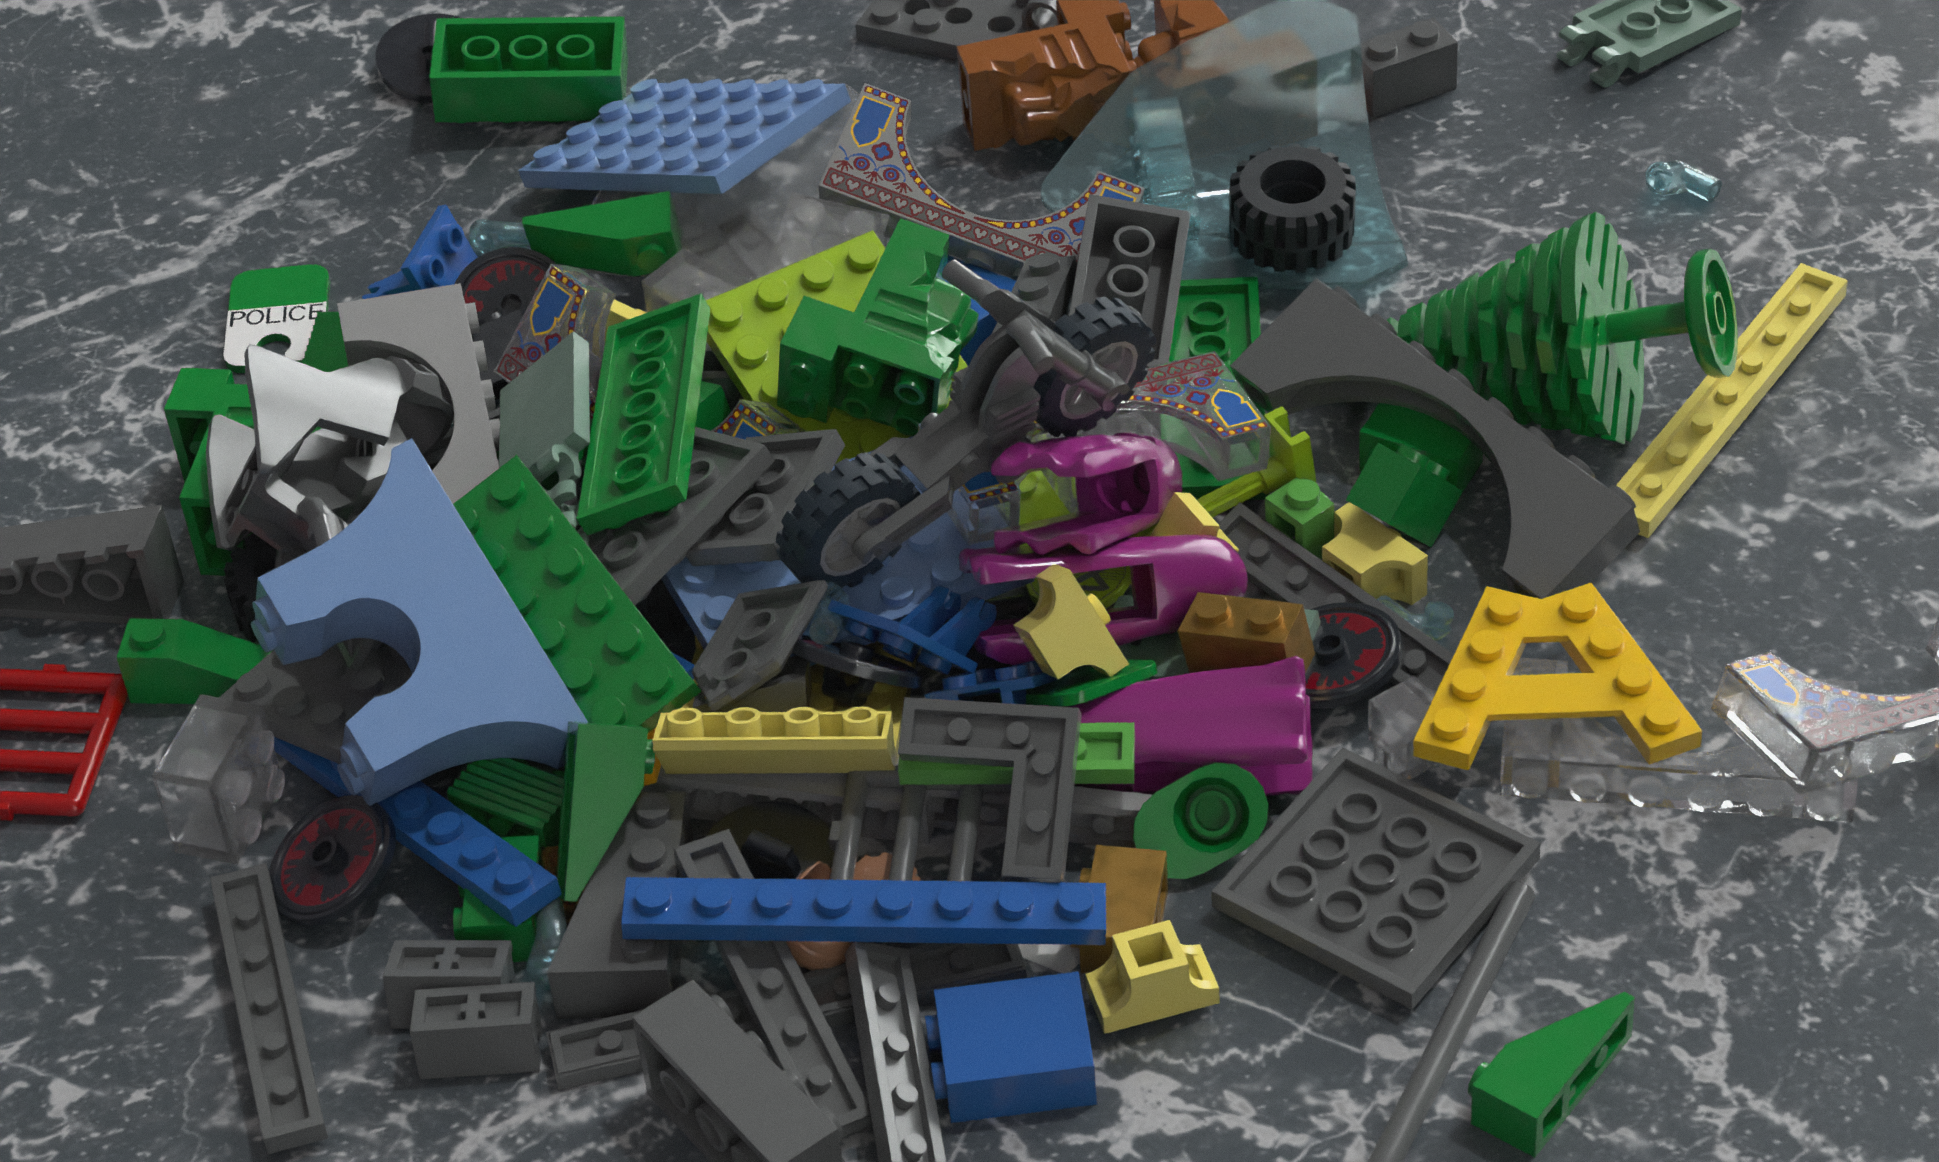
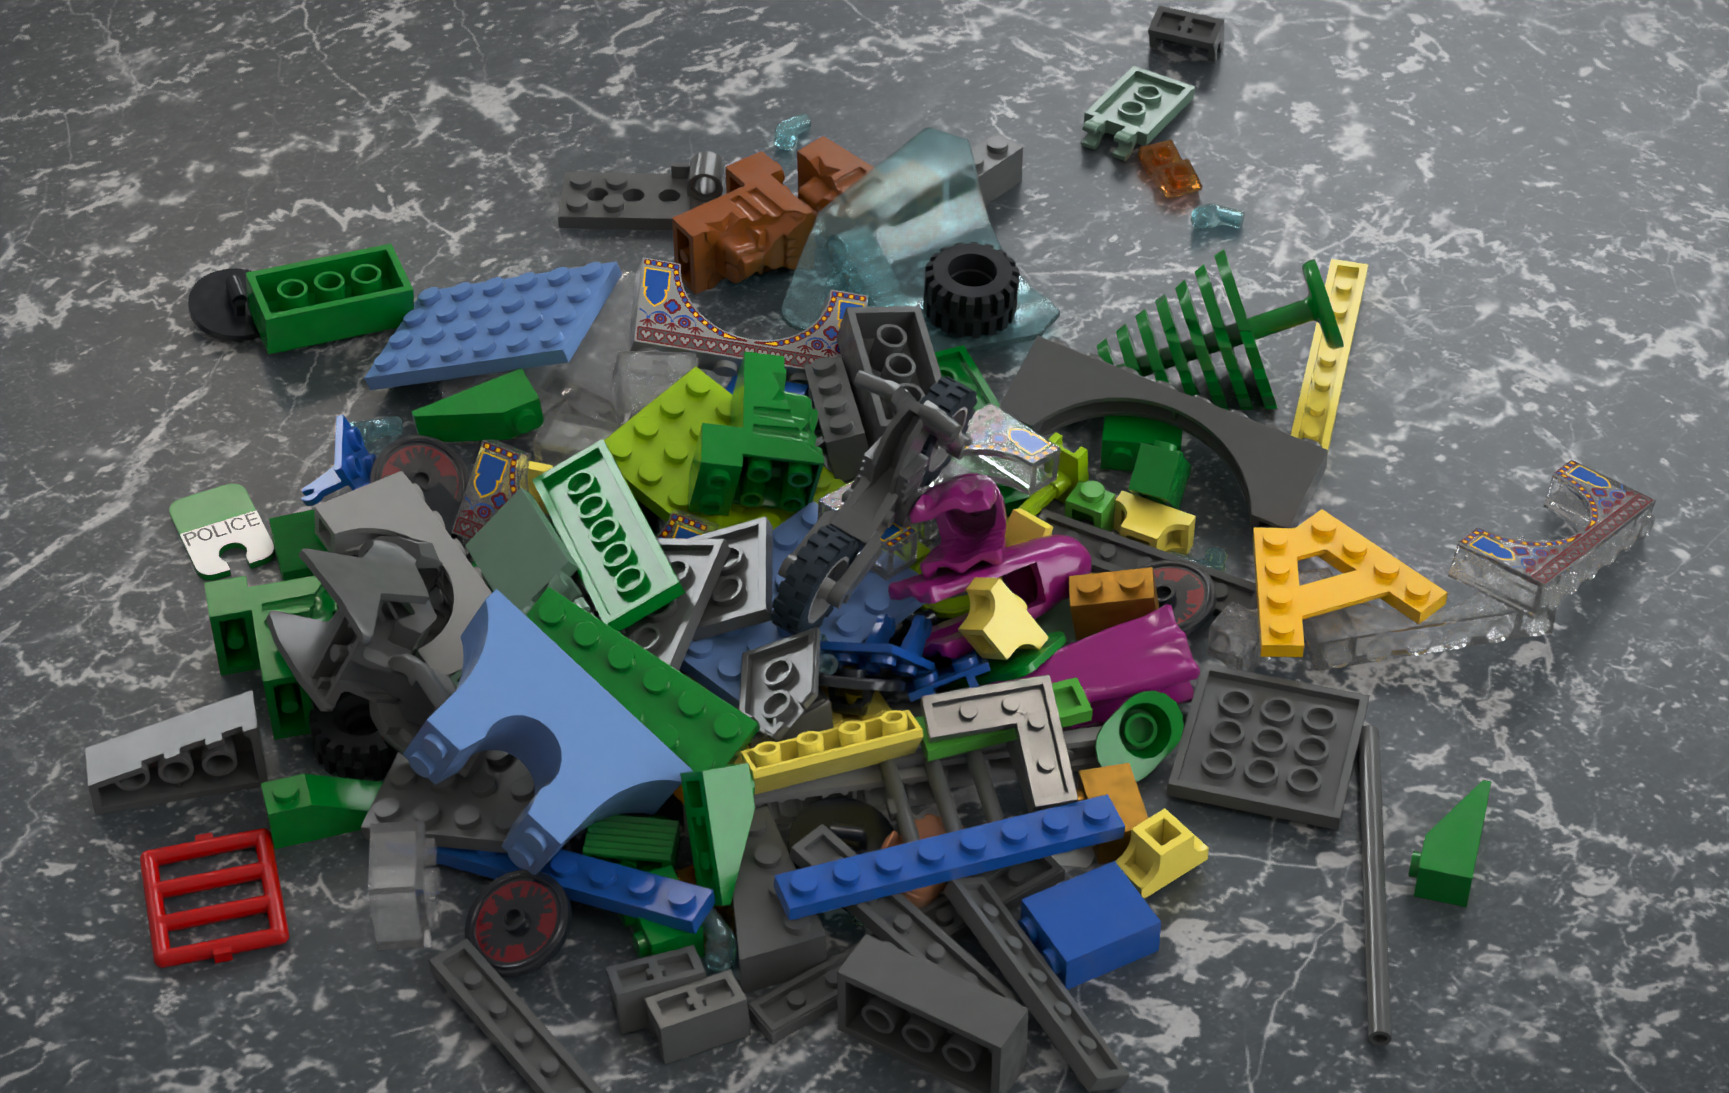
camera: 25 degrees left, 0 degrees up
(1652, 108) = (1168, 170): none -> clear orange slope

